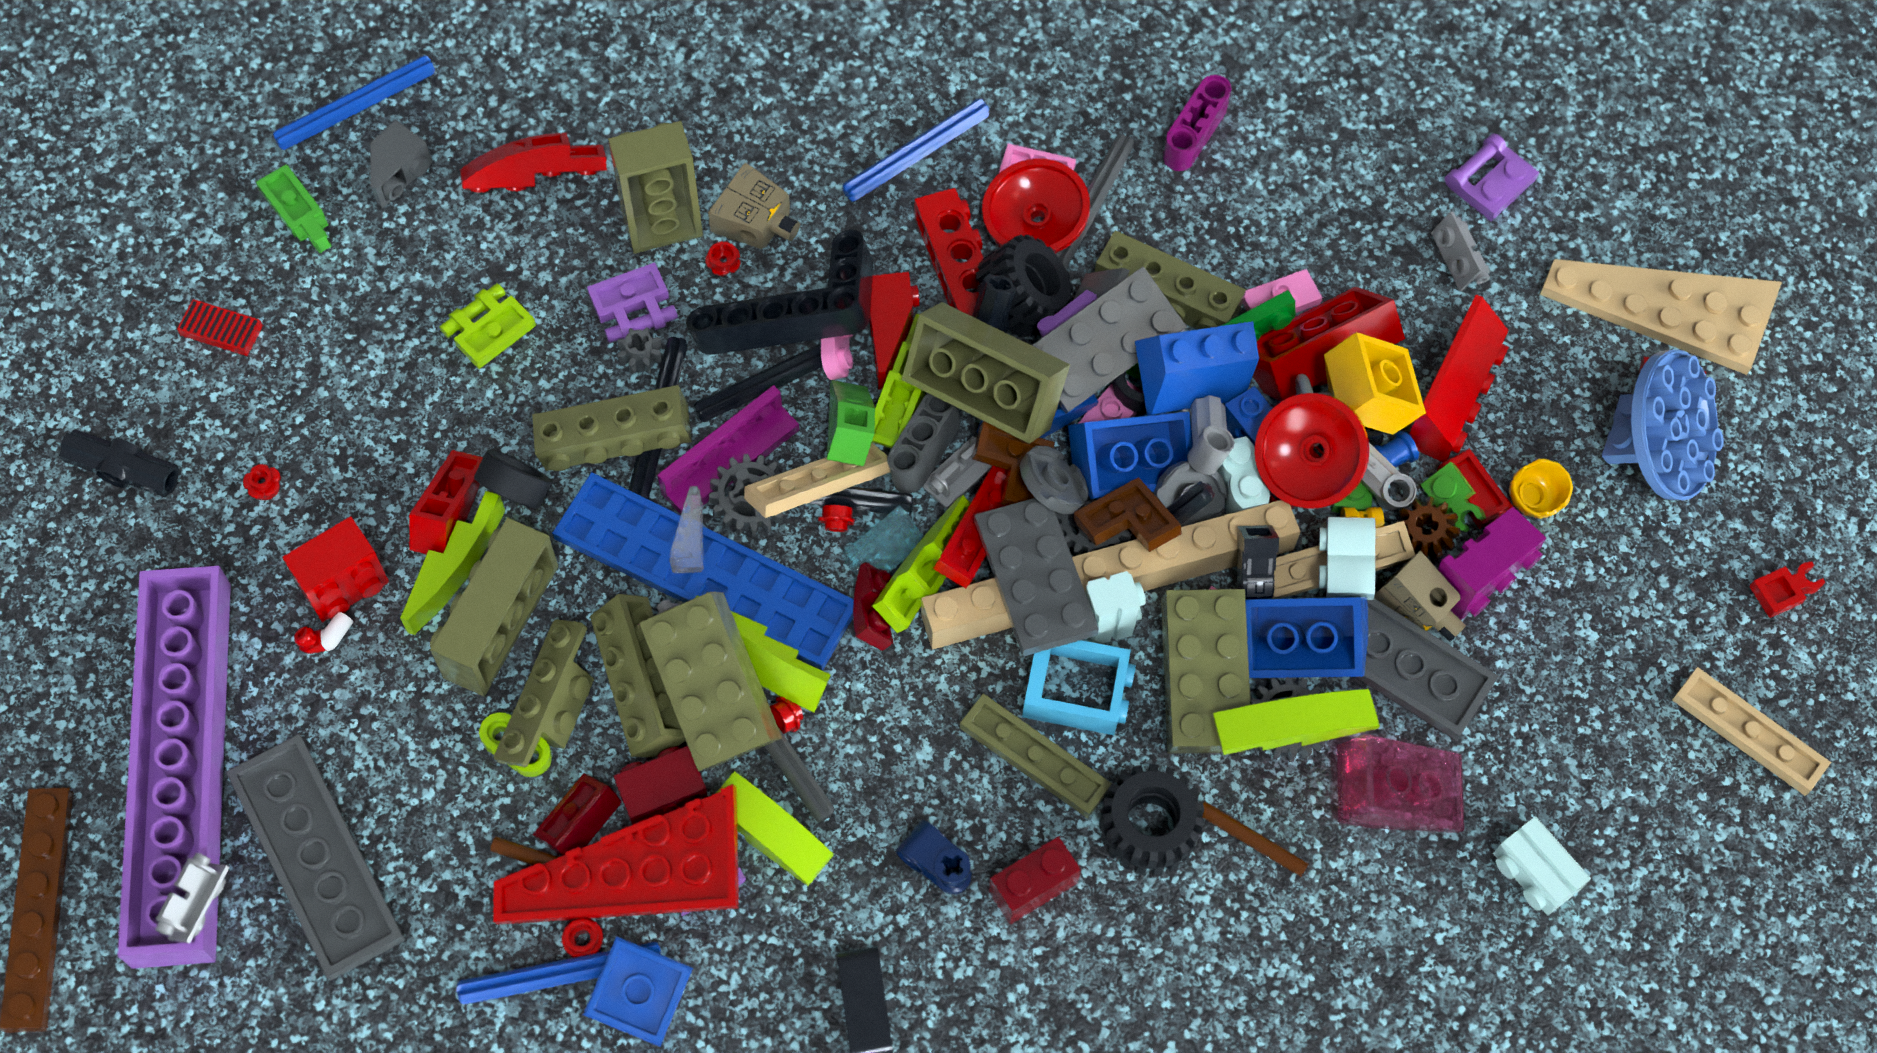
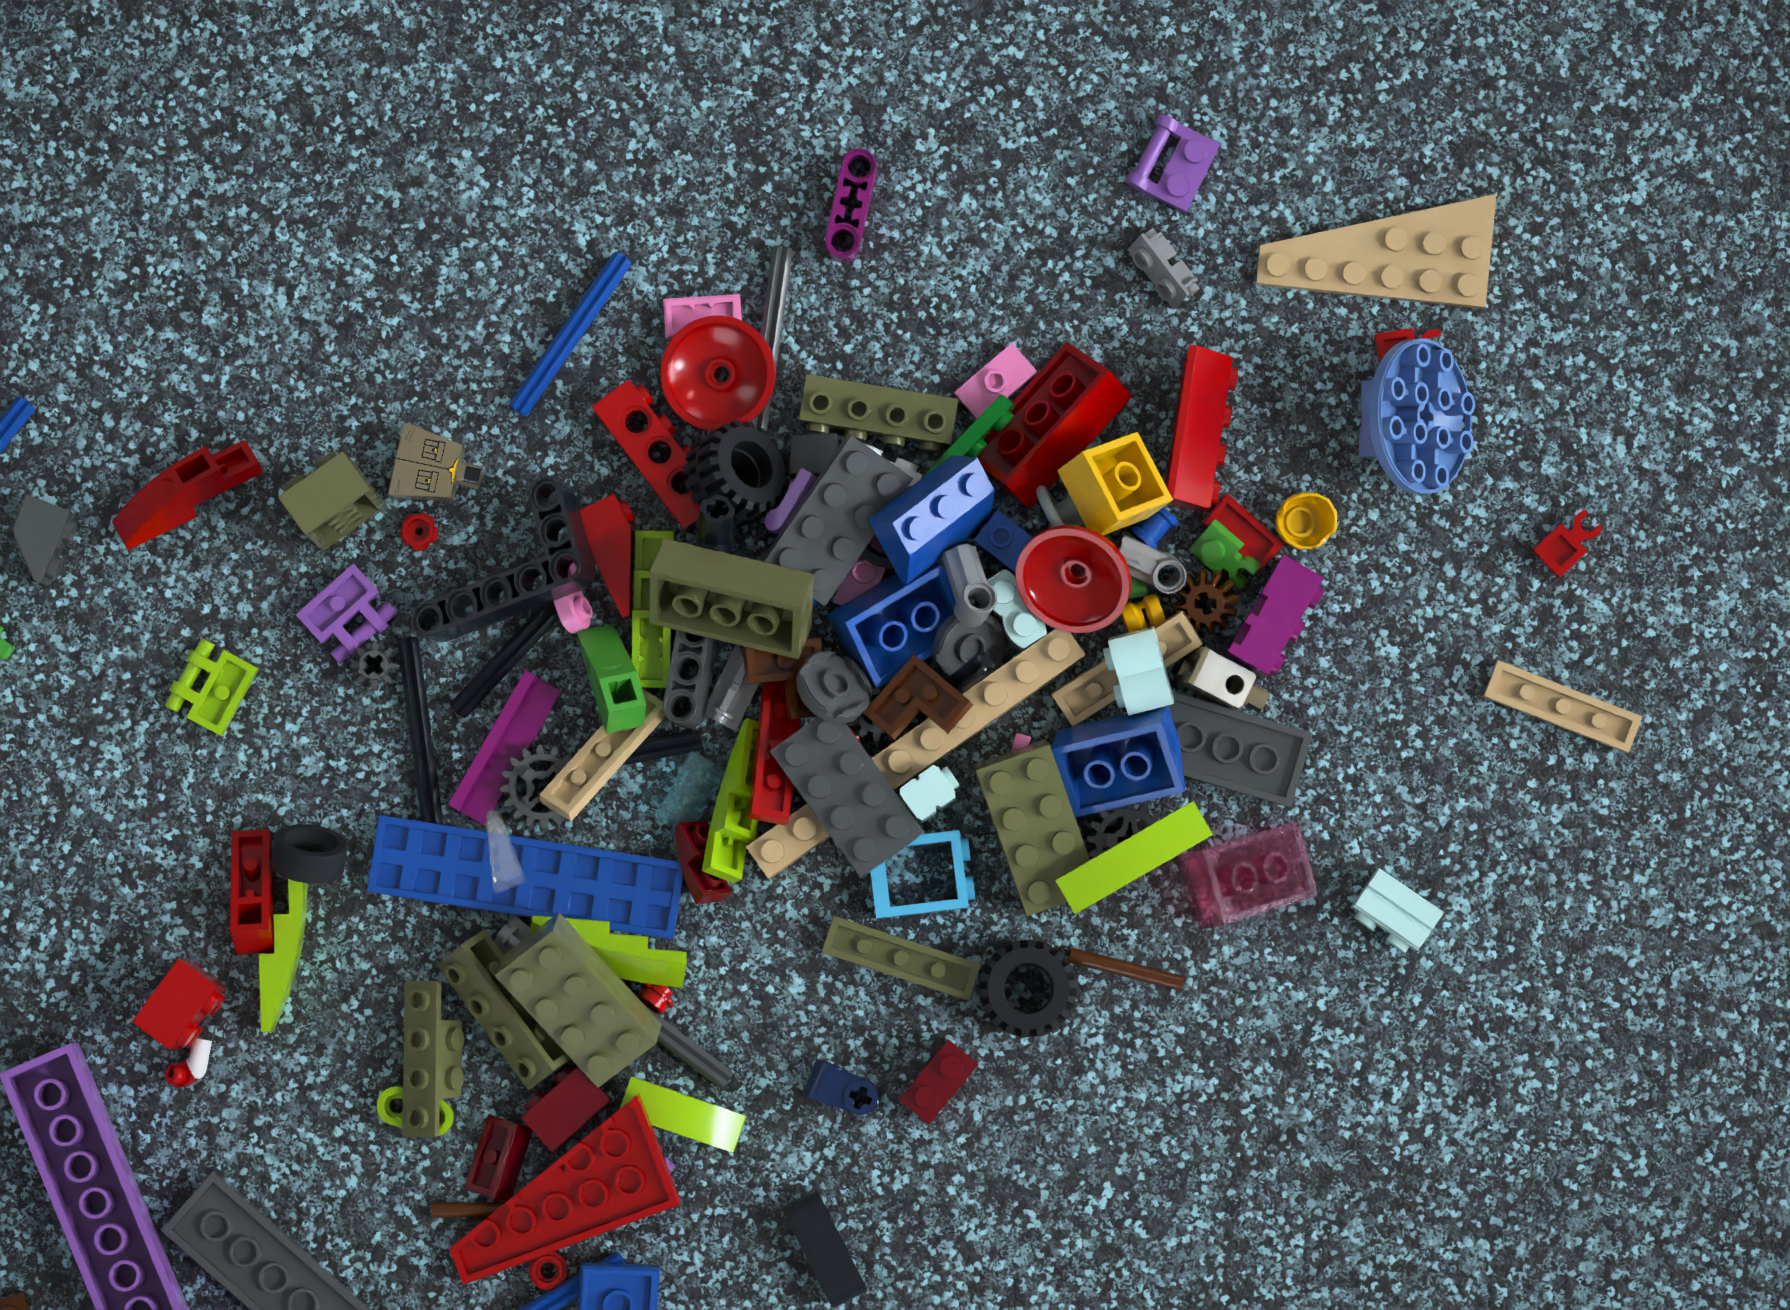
camera: 15 degrees left, 20 degrees up
(267, 489) = (70, 922): red plate -> none
(494, 606) = (344, 991): olive brick -> none
(611, 428) = (383, 766): olive brick -> none
(836, 518) = (633, 779): red plate -> none
(1257, 560) = (1053, 703): black leg -> none

